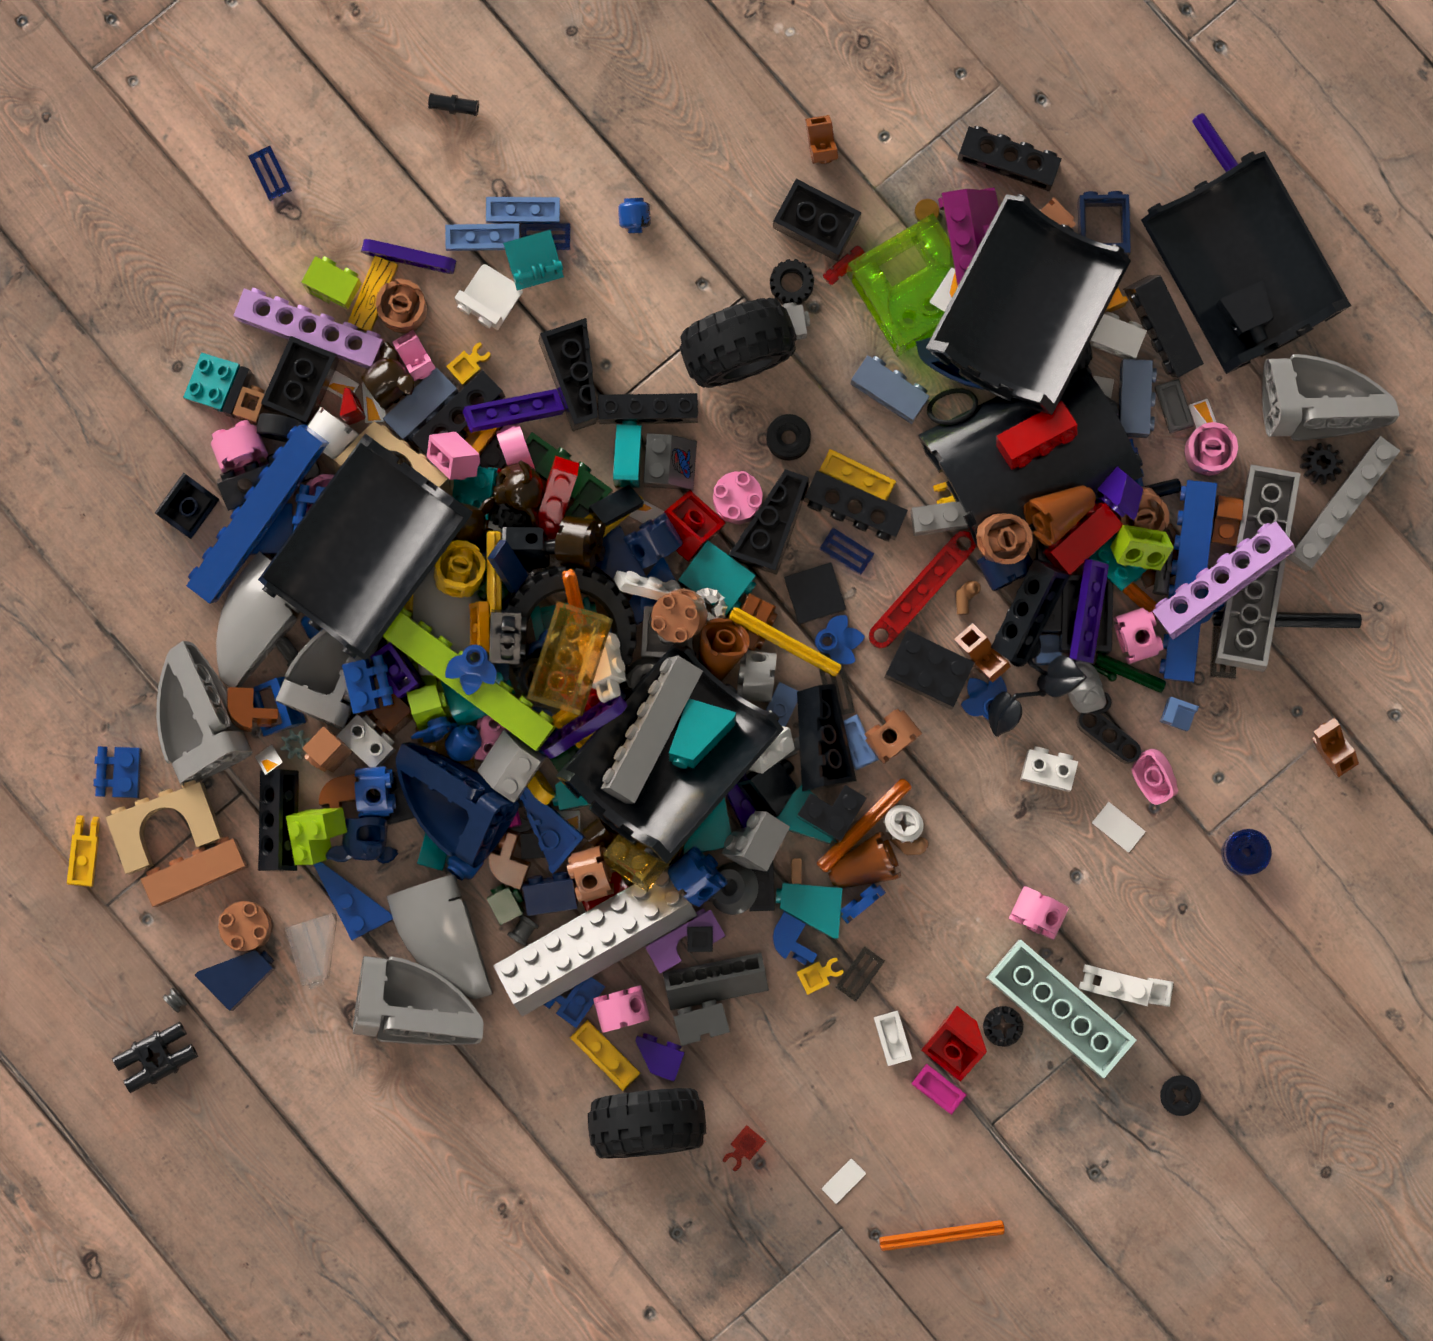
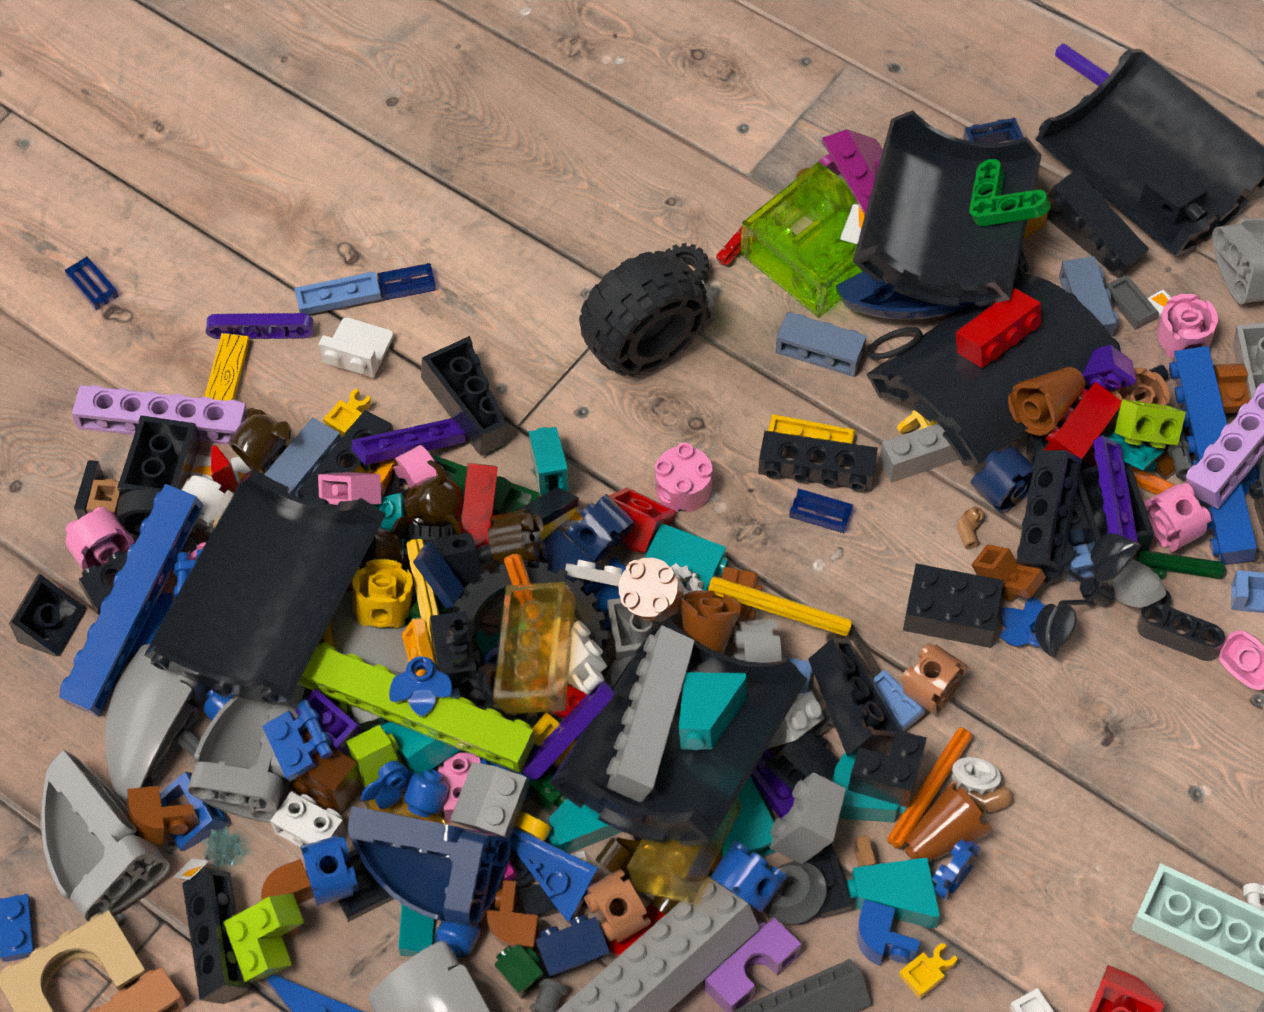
camera: 15 degrees left, 25 degrees down
(211, 381) = (57, 488): teal hinge -> none
(326, 750) = (262, 827): nougat brick -> none
(330, 282) = (176, 357): lime brick -> none
(364, 841) = (328, 934): dark blue piece -> none
(401, 306) = (261, 370): nougat brick -> none
(414, 355) = (284, 409): bright pink brick -> none
(453, 104) = (280, 182): black pin -> none
(523, 210) = (376, 259): medium blue plate -> none
(533, 260) = (399, 300): teal hinge -> none
(634, 215) = (498, 240): blue head -> none
(648, 408) = (566, 410): black brick -> none
(669, 462) = (596, 461): dark grey slope -> none
(700, 939) = (771, 952): black tile -> none
(770, 530) = (729, 501): black wedge -> none
(792, 423) = (726, 397): black tyre -> none
(815, 593) = (797, 559): black tile -> none
(816, 220) = (695, 204): black brick -> none
(821, 139) = (679, 137): dark orange brick -> none
(843, 640) = (842, 598): blue plate -> none
(873, 956) = (984, 936): clear smoke tile -> none
(922, 589) = (917, 530): red plate -> none
(994, 1018) = (1170, 995): black gear -> none
(1004, 538) = (997, 431): nougat brick -> none
(1018, 169) = (872, 114): black brick -> none
(1038, 912) = (1170, 832): bright pink brick -> none
(1048, 769) = (1125, 681): white brick -> none
(1071, 301) = (990, 208): none -> green beam
(1118, 336) = (1049, 245): white brick -> none
(1118, 827) = (1226, 729): white sticker -> none

